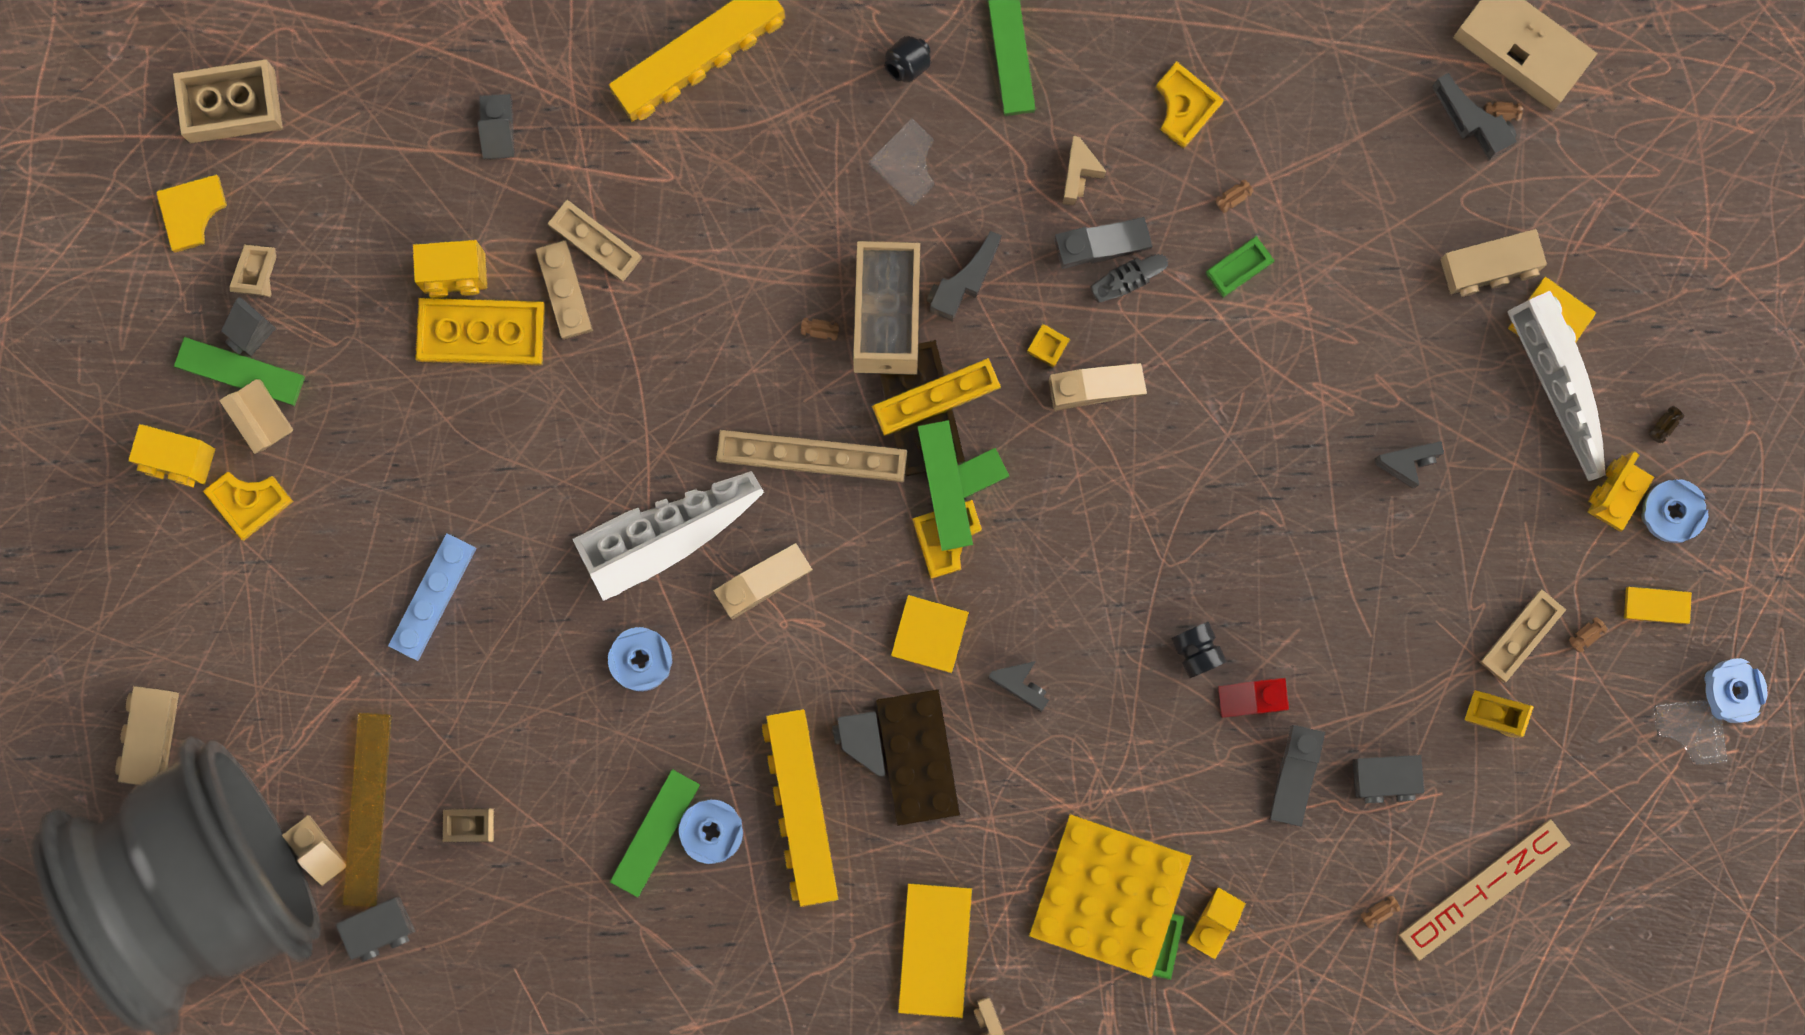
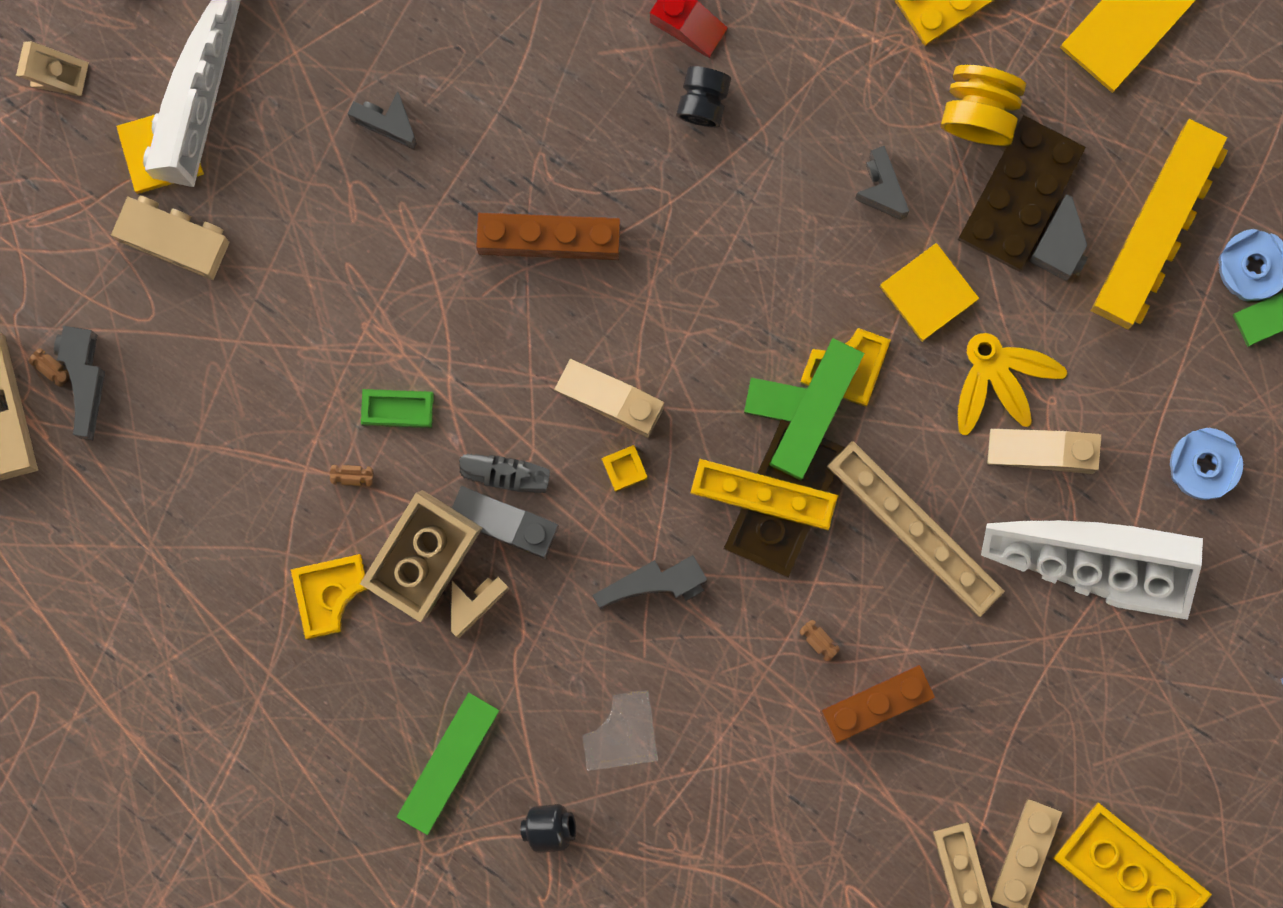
camera: 135 degrees left, 0 degrees up
(746, 312) = (877, 704): none -> dark orange brick
(825, 607) = (1007, 388): none -> yellow plant
(886, 307) = (747, 608): clear brick -> none
(994, 795) = (983, 105): none -> yellow wheel
(1141, 172) = (421, 555): none -> tan brick
(1230, 465) = (548, 236): none -> dark orange brick
(1674, 315) = (51, 69): none -> tan slope

